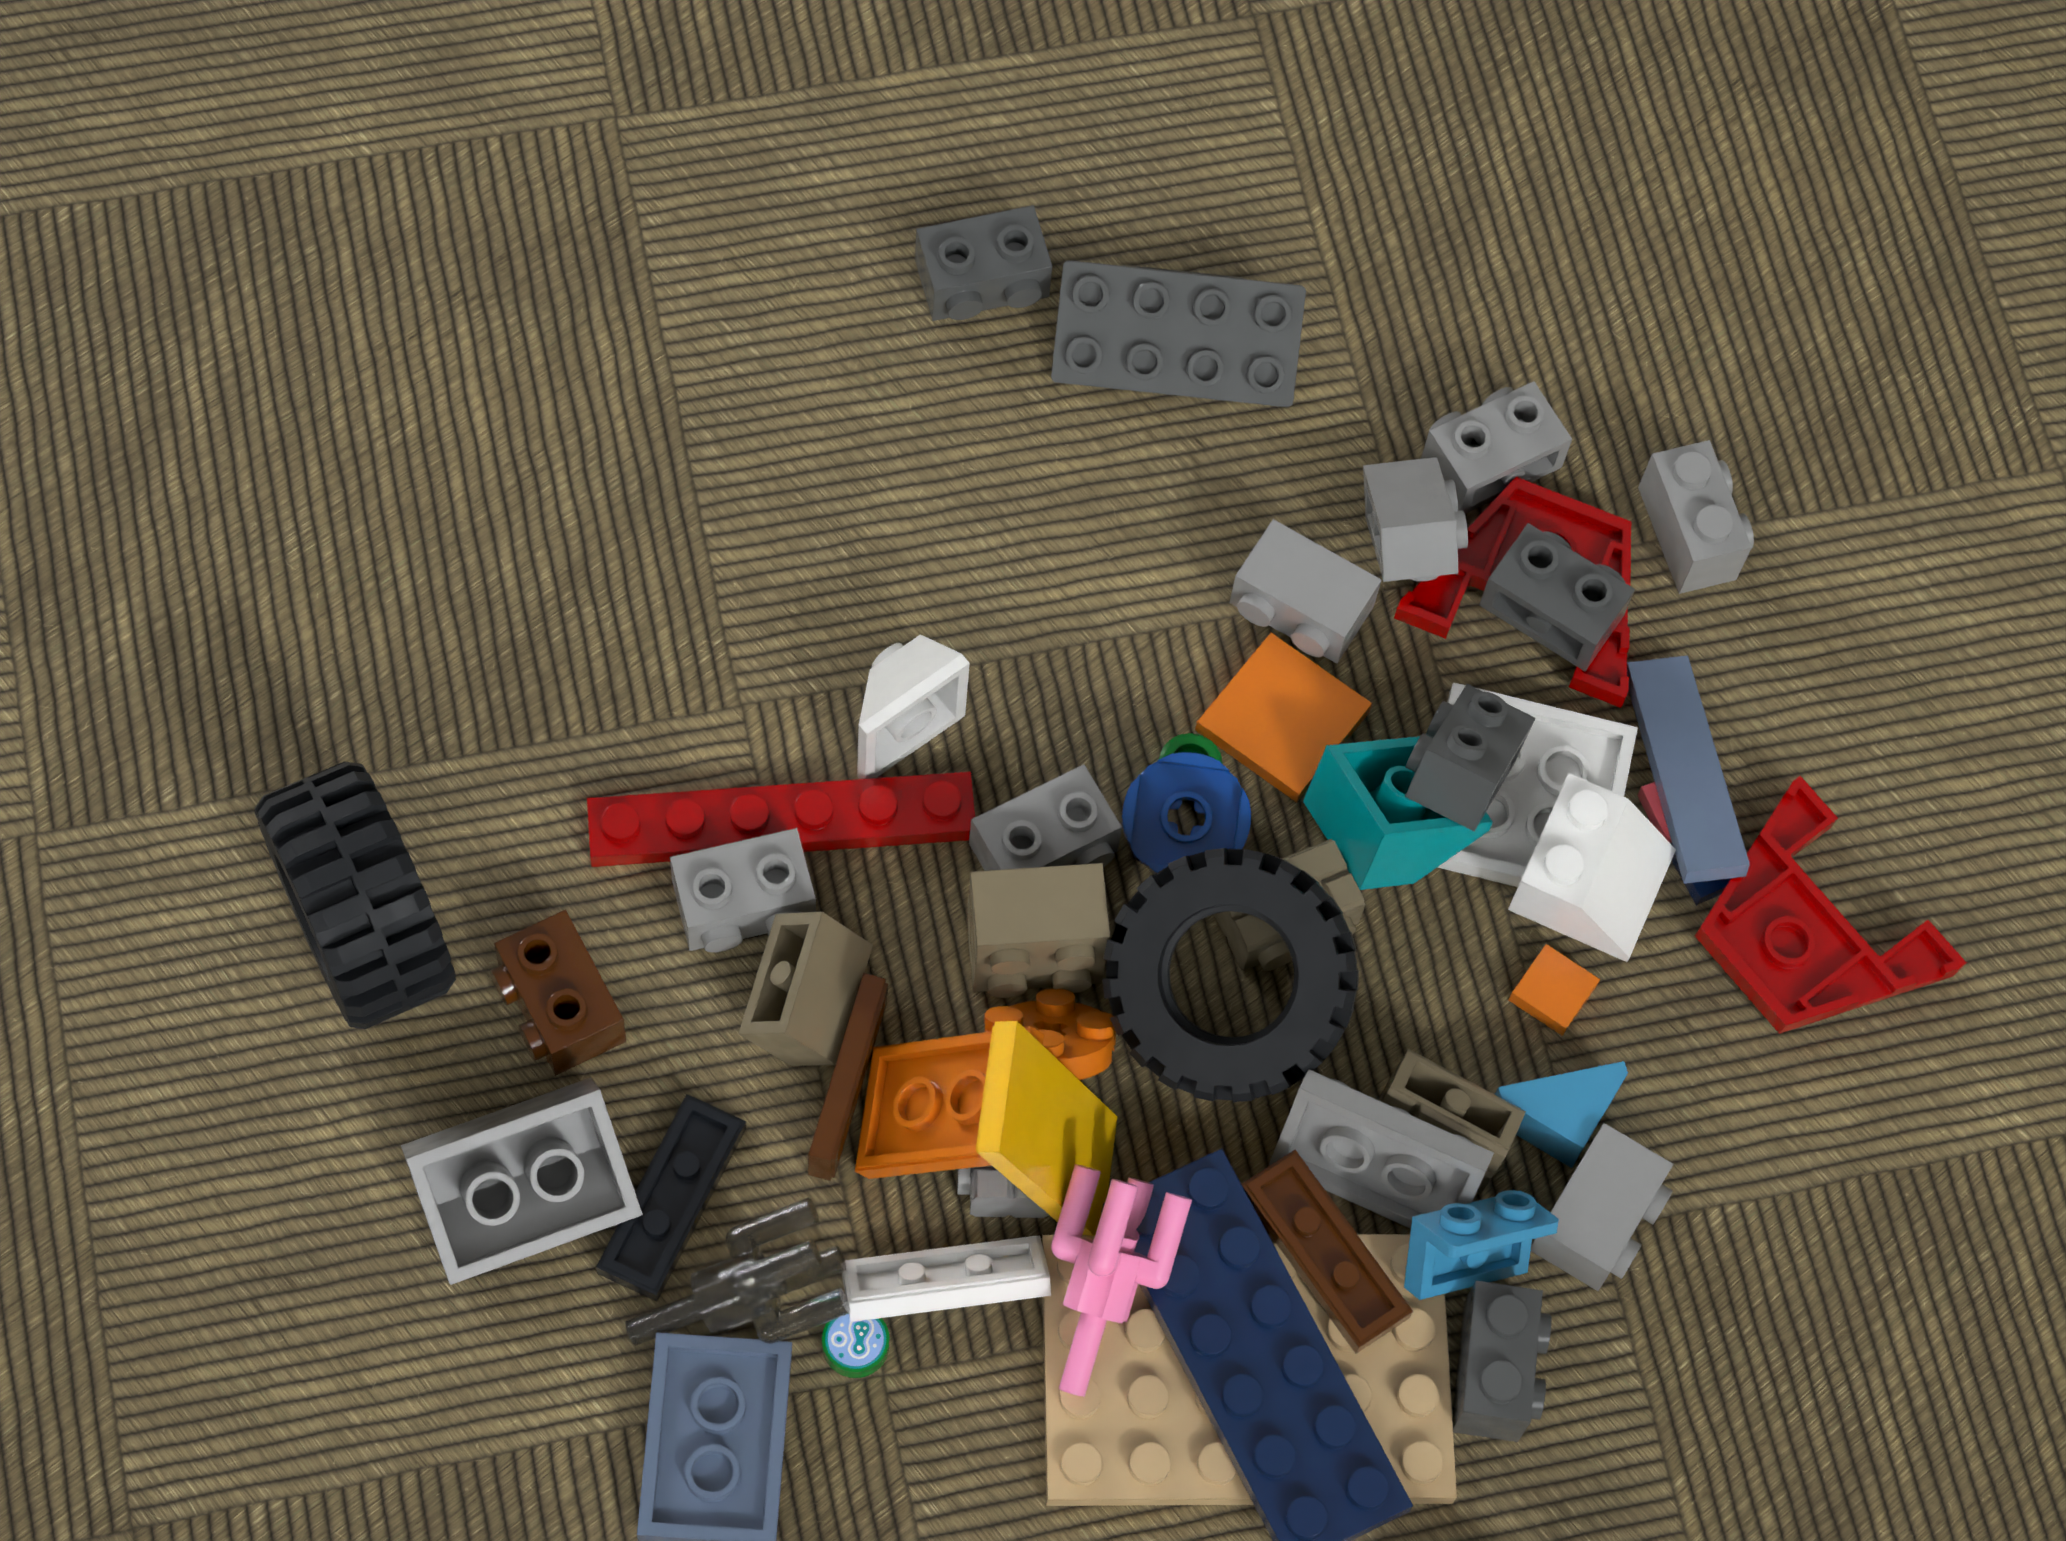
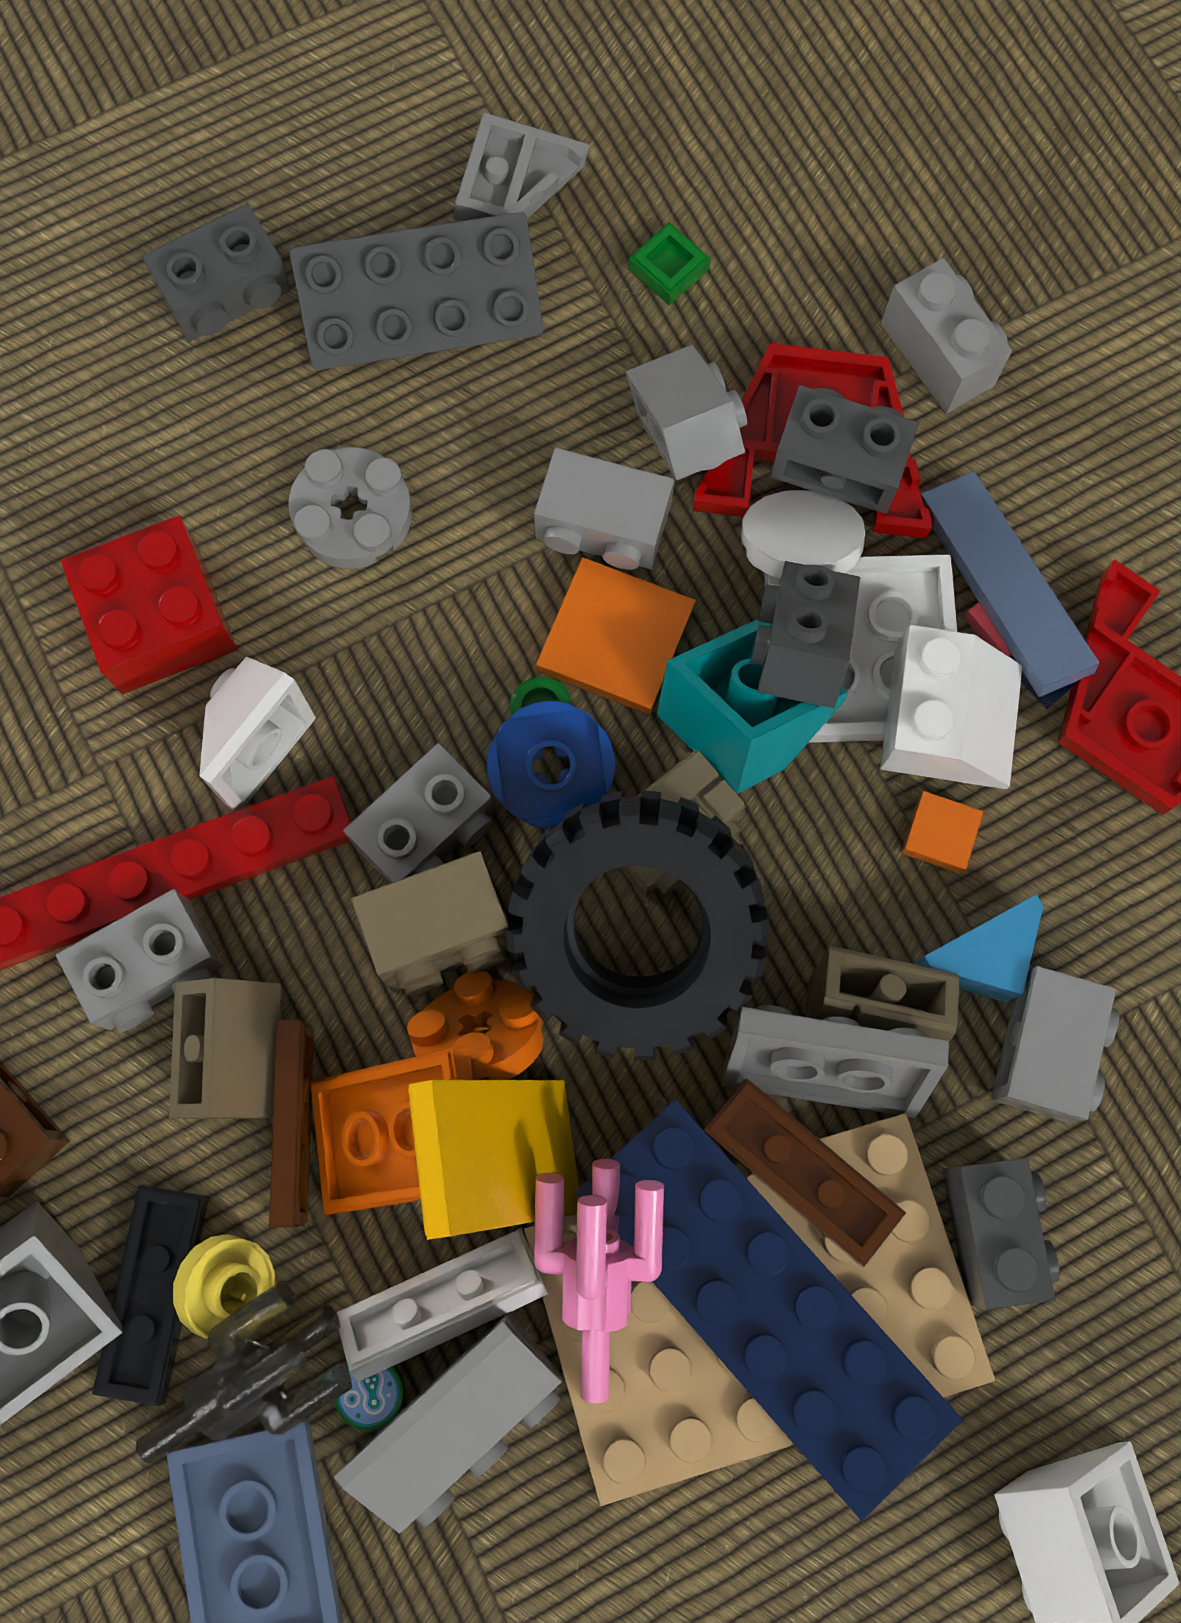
camera: 10 degrees left, 10 degrees up
(742, 1190) = (219, 1280): none -> light yellow plate
(836, 563) = (148, 605): none -> red brick
(934, 1375) = (453, 1427): none -> light grey slope
(1061, 490) = (341, 474): none -> light grey plate
(1307, 239) = (515, 169): none -> light grey wing
(1438, 371) = (669, 263): none -> green tile
(1474, 1243) = (948, 1124): dark azure bracket -> none
(1496, 662) = (802, 530): none -> white tile
(1500, 440) = (746, 312): light grey brick -> none

